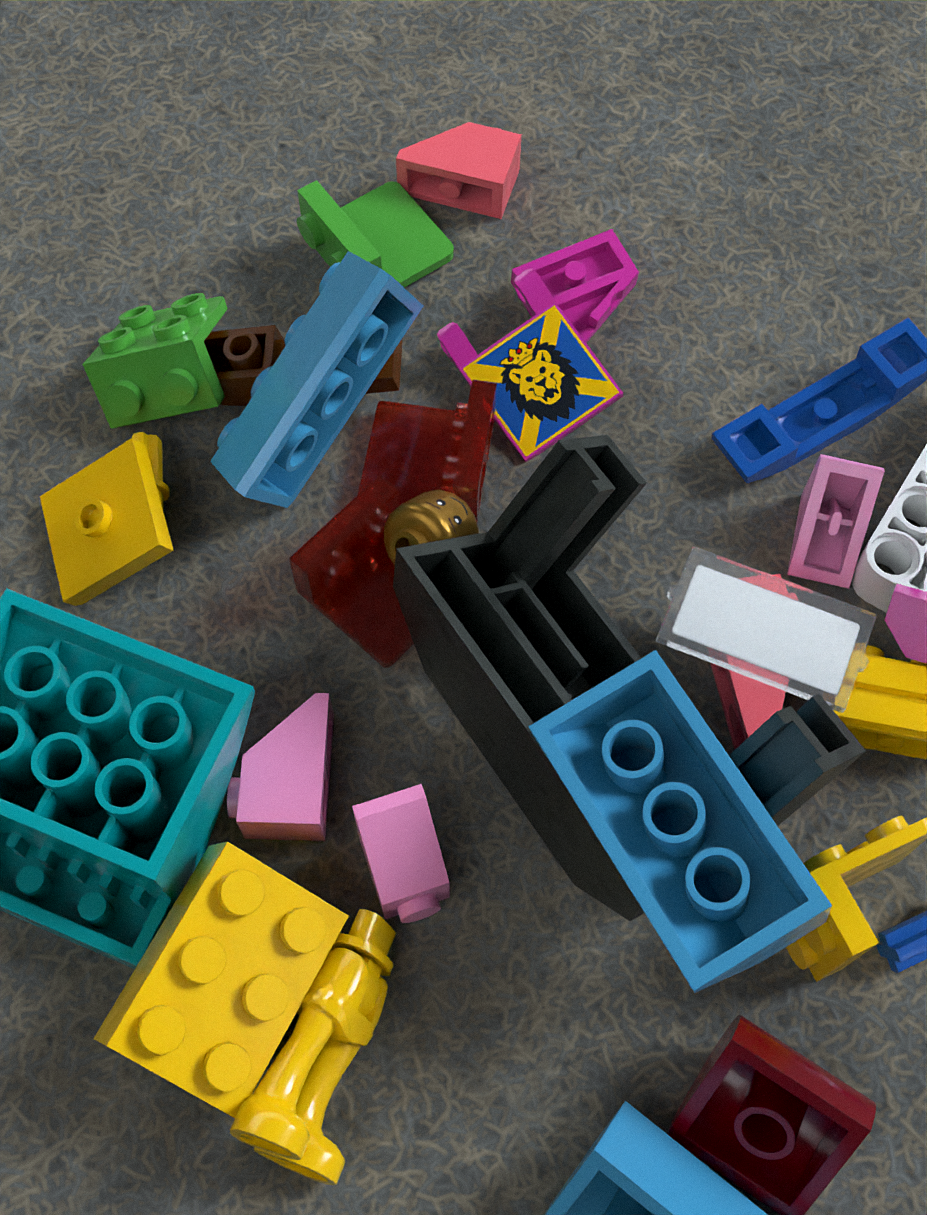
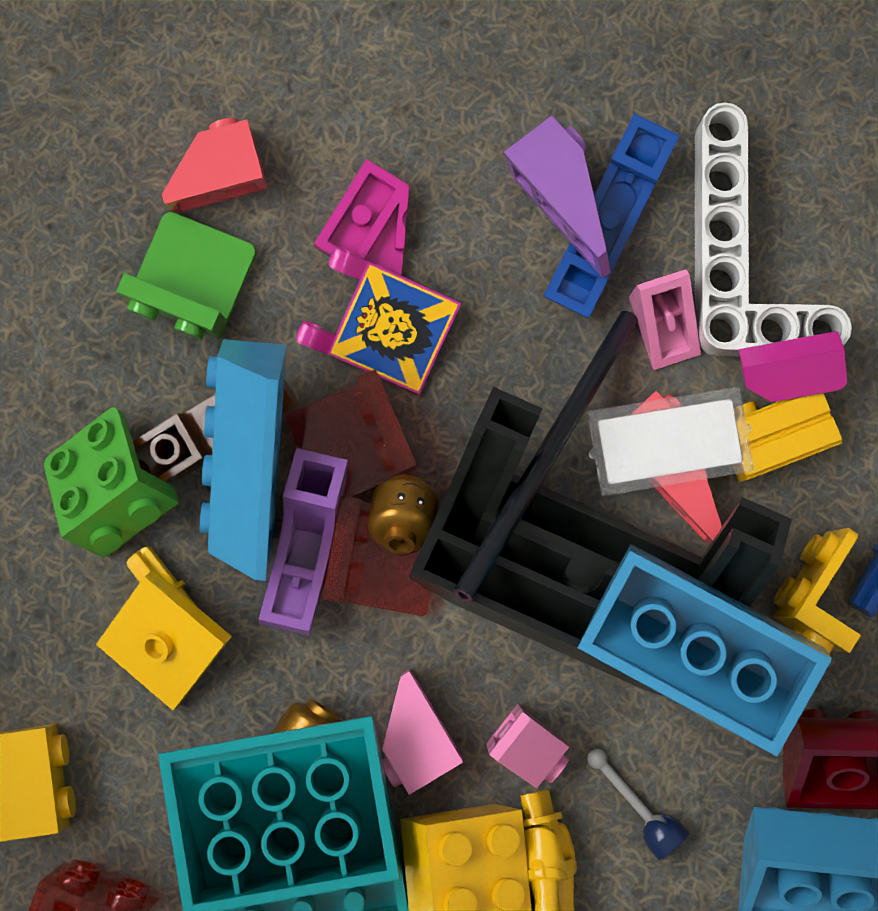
camera: 30 degrees left, 20 degrees up
(347, 457) = (305, 541): none -> medium lavender arch
(494, 1066) = (661, 831): none -> hinge
(607, 555) = (544, 458): none -> black piece
(790, 339) = (555, 175): none -> medium lavender slope

